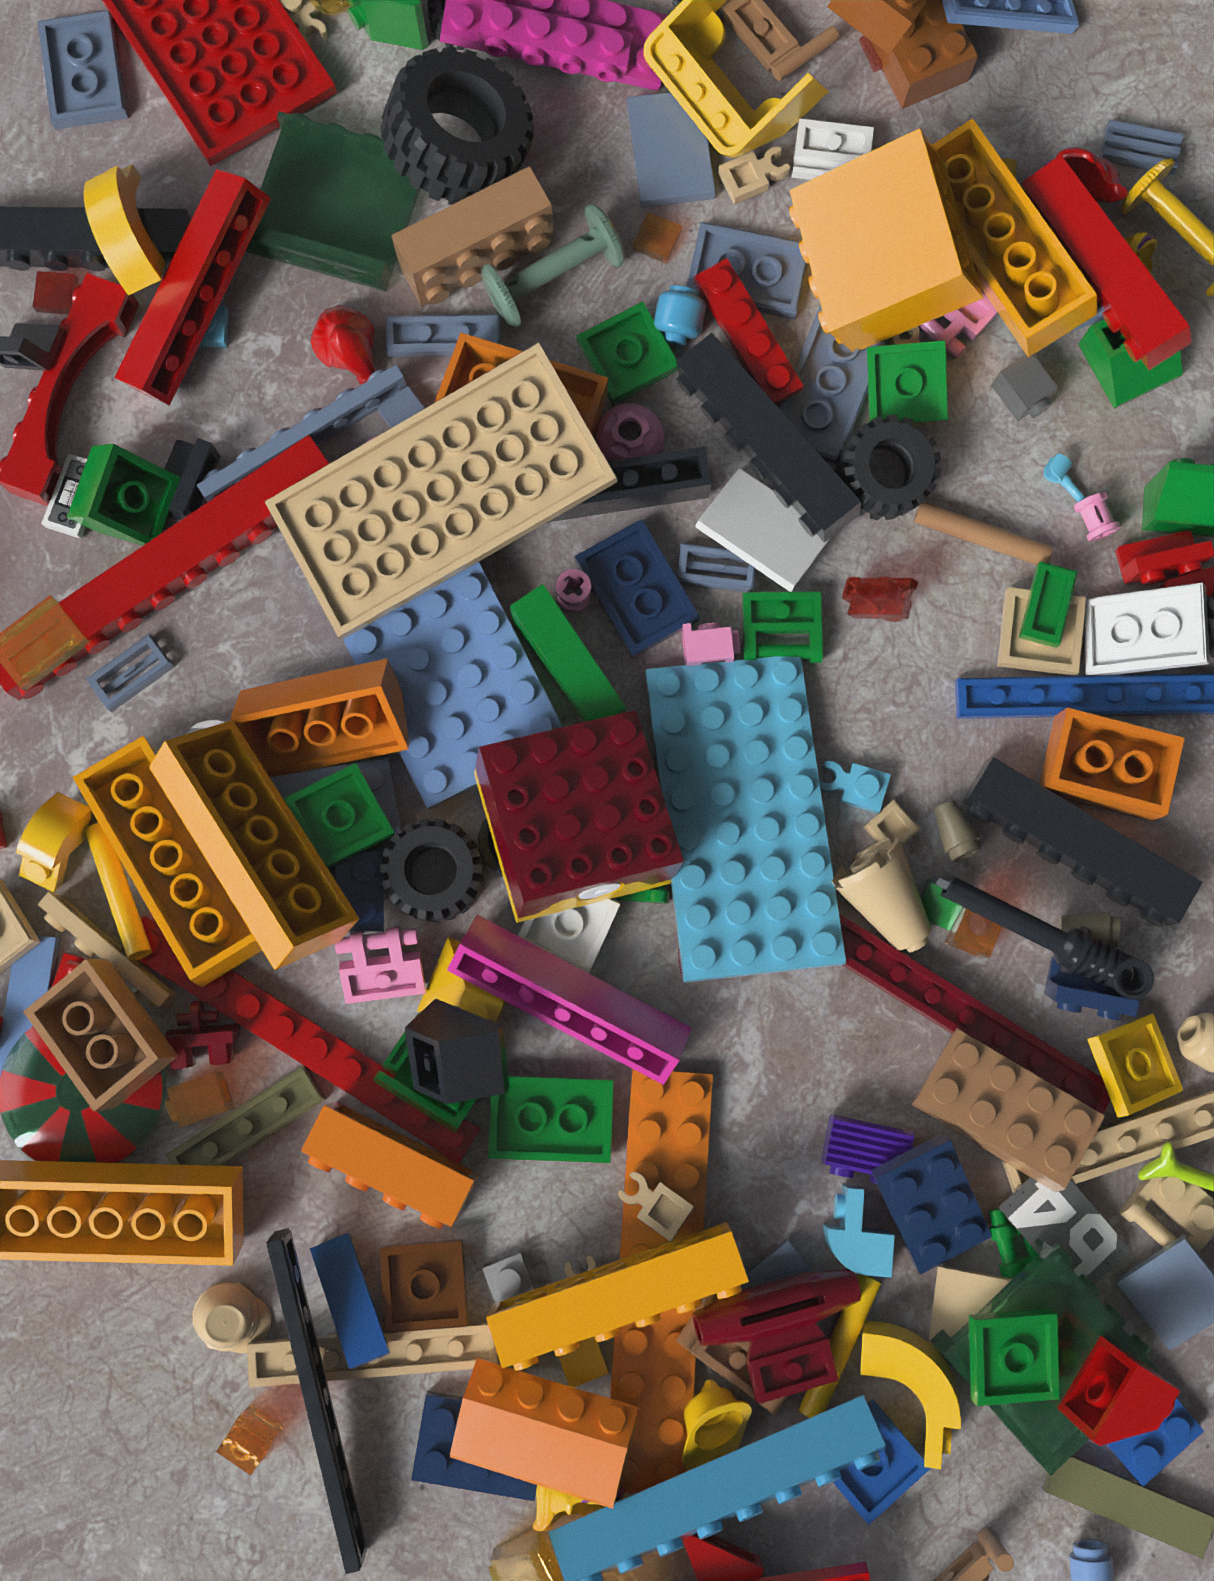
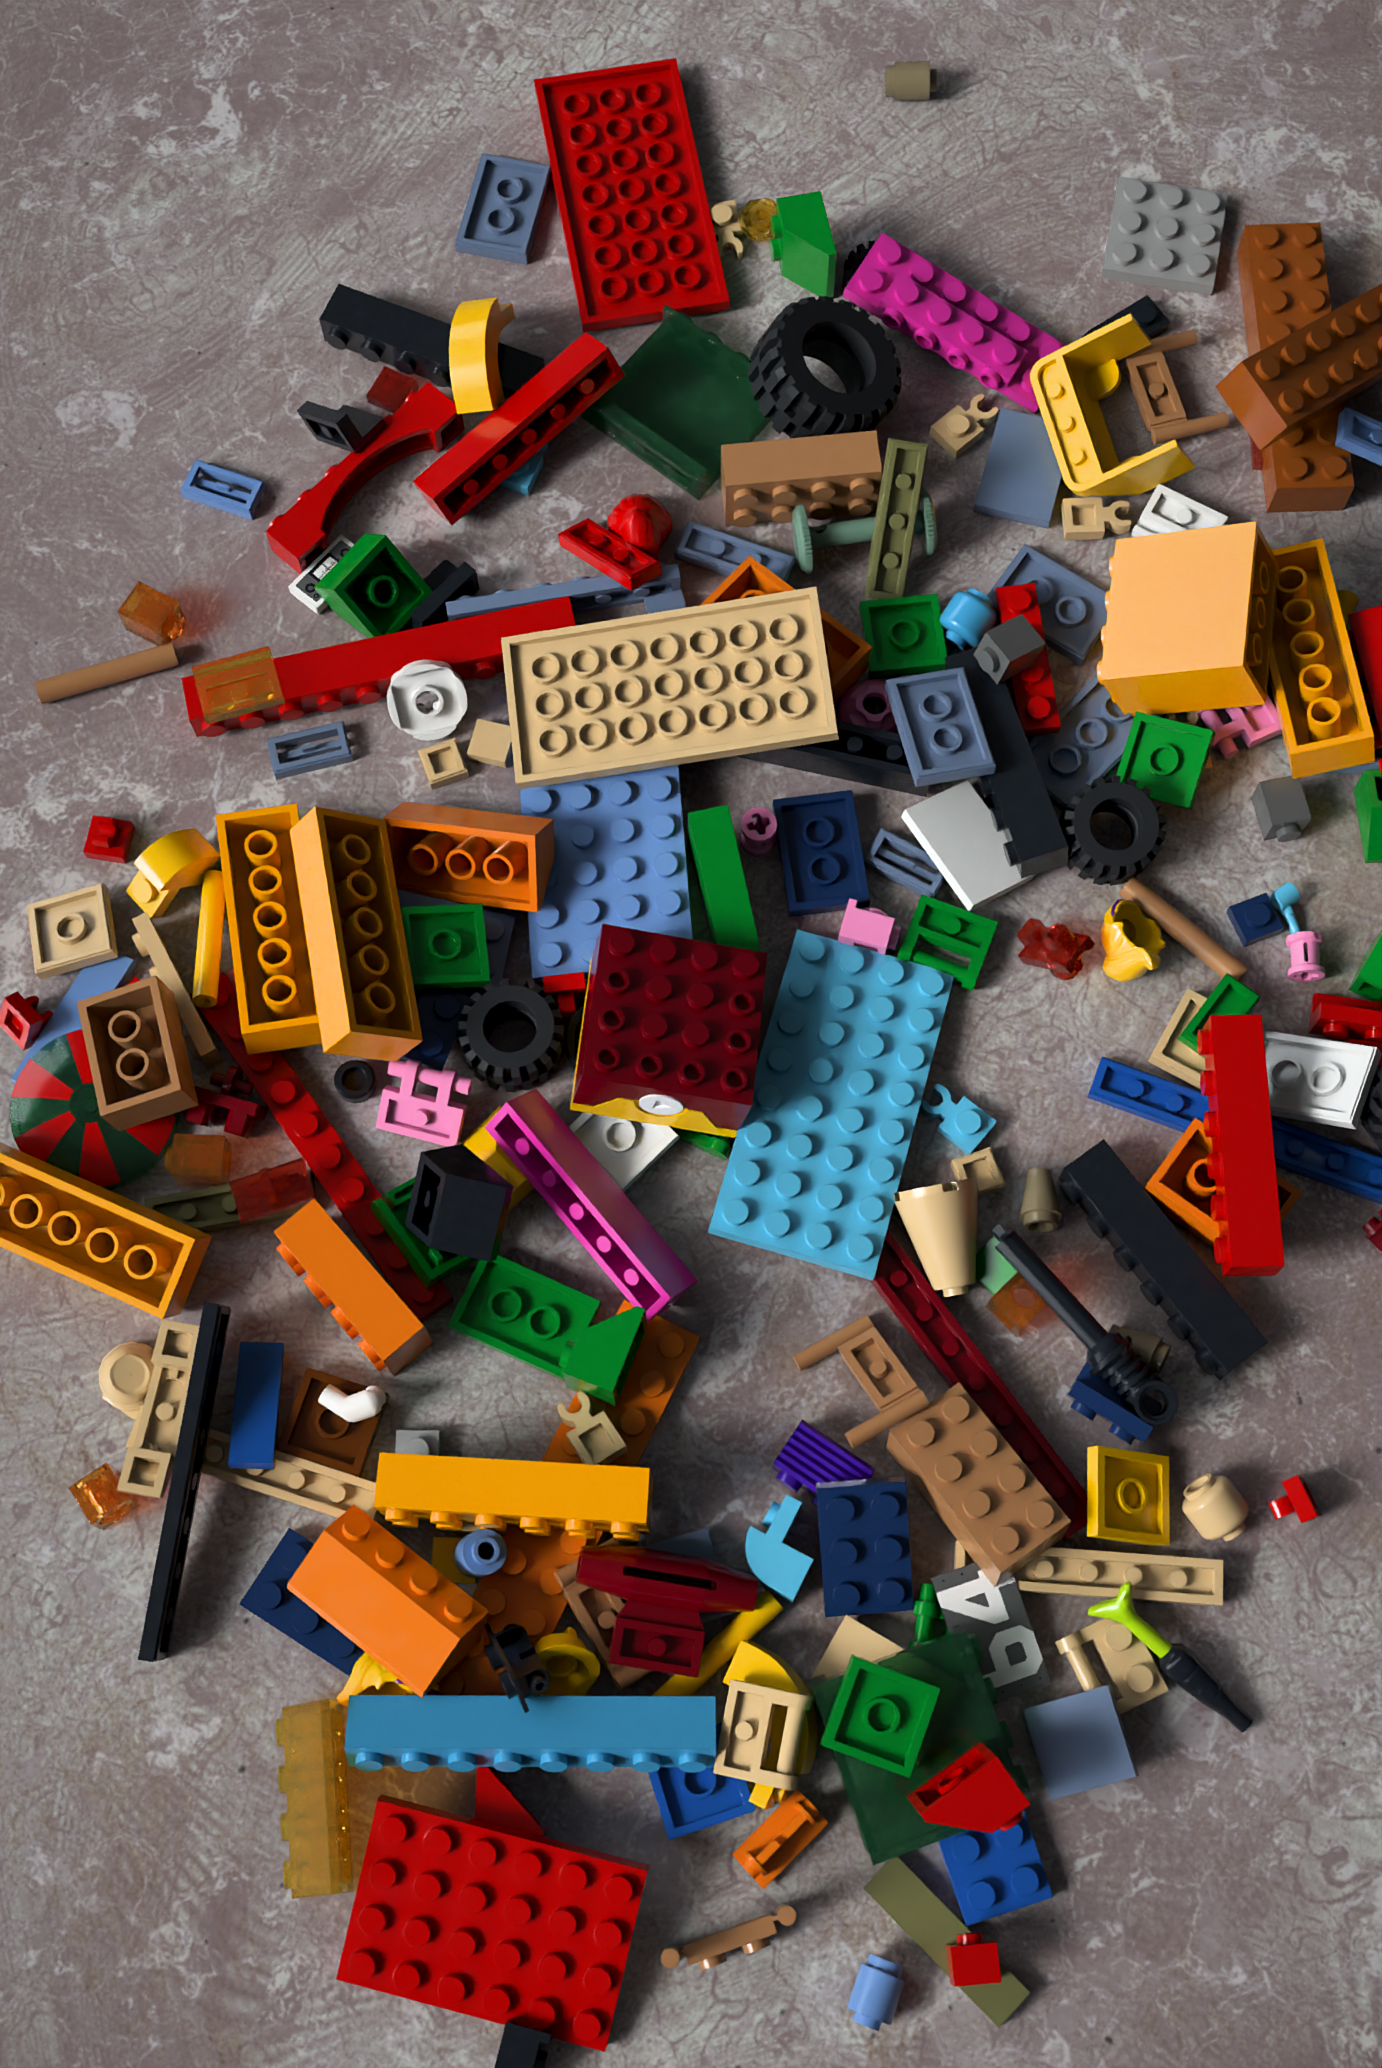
camera: 25 degrees right, 10 degrees down
(210, 565) = (437, 679): none -> white plate
(259, 637) = (443, 763): none -> tan tile
(277, 1382) = (152, 1457): none -> tan slope
(280, 1105) = (272, 1190): none -> clear red hips
(294, 601) = (490, 743): none -> tan tile
(309, 970) = (355, 1081): none -> black tile
(329, 378) = (610, 554): none -> red tile
(437, 1269) = (355, 1406): none -> white arm
(462, 809) = (565, 990): none -> red tile
(579, 244) = (895, 519): none -> olive tile
(594, 1356) = (467, 1555): none -> medium blue brick
(598, 130) = (962, 428): none -> tan plate
(643, 1139) = (604, 1355): none -> green slope
(657, 237) = (977, 543): clear orange tile -> none
(692, 1453) = (521, 1665): none -> black hinge
(701, 431) = (940, 727): none -> sand blue tile
(734, 333) = (1009, 649): none -> dark grey brick
(882, 1046) = (876, 1371): none -> medium nougat plate
(903, 1413) = (748, 1730): none -> tan plate
(943, 565) = (1129, 942): none -> yellow hair
(958, 1480) = (780, 1838): none -> orange hinge
(1039, 499) = (1254, 919): none -> dark blue plate
(1120, 719) = (1241, 1146): none -> red brick
(1165, 1520) = (973, 1960): none -> red plate

